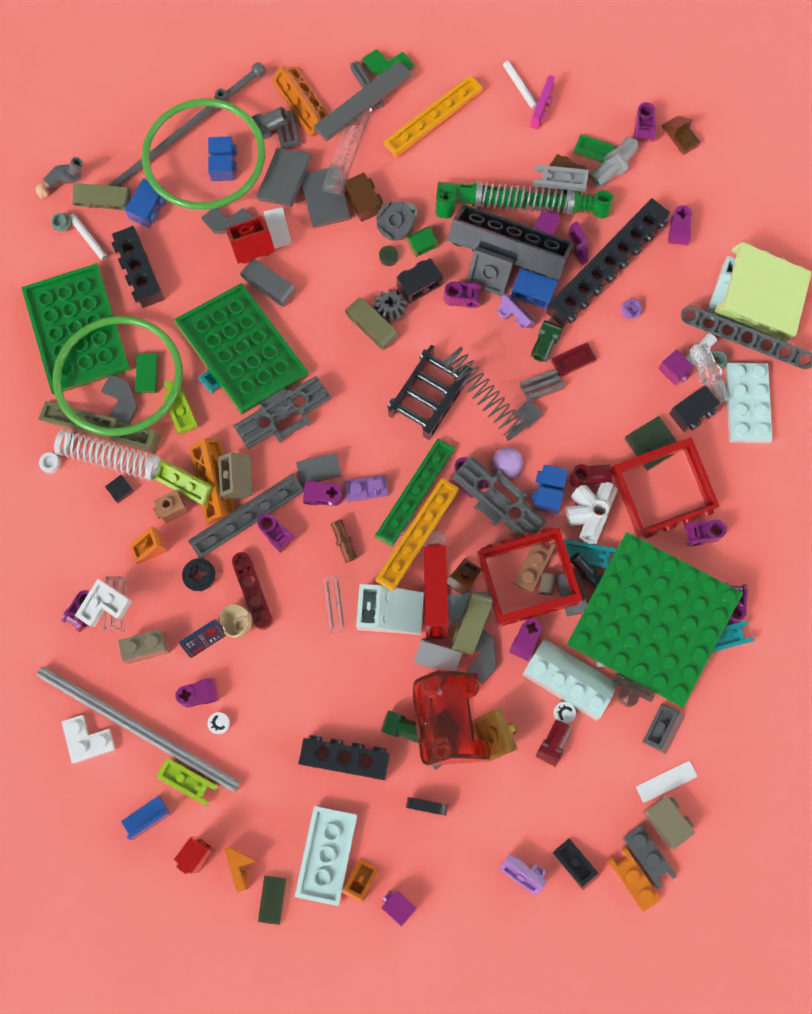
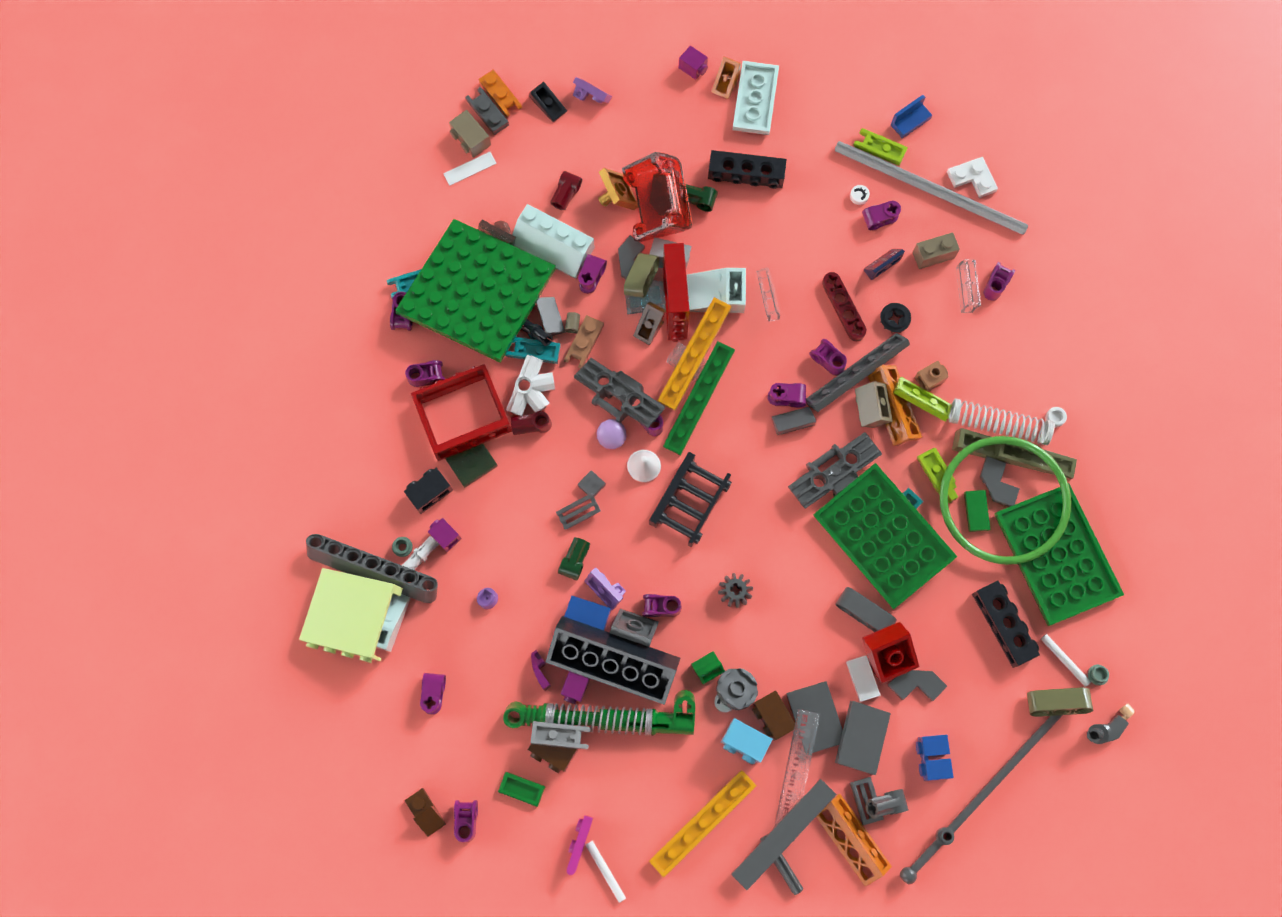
camera: 175 degrees right, 0 degrees up
(101, 599) = (978, 280): white plate -> none
(119, 488) = (983, 394): black tile -> none
(145, 205) = (1008, 699): blue brick -> none
(148, 545) = (945, 340): orange slope -> none
(193, 855) = (865, 87): red brick -> none
(199, 103) = (1019, 747): bright green piece -> none
(235, 621) = (855, 275): tan hair -> none
(236, 860) = (827, 87): orange slope -> none
(272, 900) = (797, 66): clear green tile -> none
(343, 541) = (763, 353): copper pin -> none
(366, 488) = (746, 404): medium lavender hinge -> none
(371, 323) = (754, 569): olive beam -> none
(377, 63) = (768, 890): green tile -> none
(388, 255) = (741, 650): clear green tile -> none
(391, 171) = (746, 741): none -> medium azure brick
(419, 280) = (707, 617): black brick -> none
(426, 806) = (674, 136): black beam -> none
(474, 431) = (643, 465): none -> white hat
(519, 427) = (665, 516): dark grey piece -> none
(529, 540) = (581, 292): red window -> none
(550, 489) = (570, 409): blue piece -> none
(564, 712) = (558, 213): white tile -> none
(573, 359) = (546, 542): dark red tile -> none
(615, 162) = (499, 769): light grey piece -> none
(652, 213) = (464, 709): black brick -> none
(663, 728) = (471, 207): dark grey slope -> none
(704, 361) = (411, 525): clear piece -> none
(749, 403) = (374, 505): light aqua plate -> none

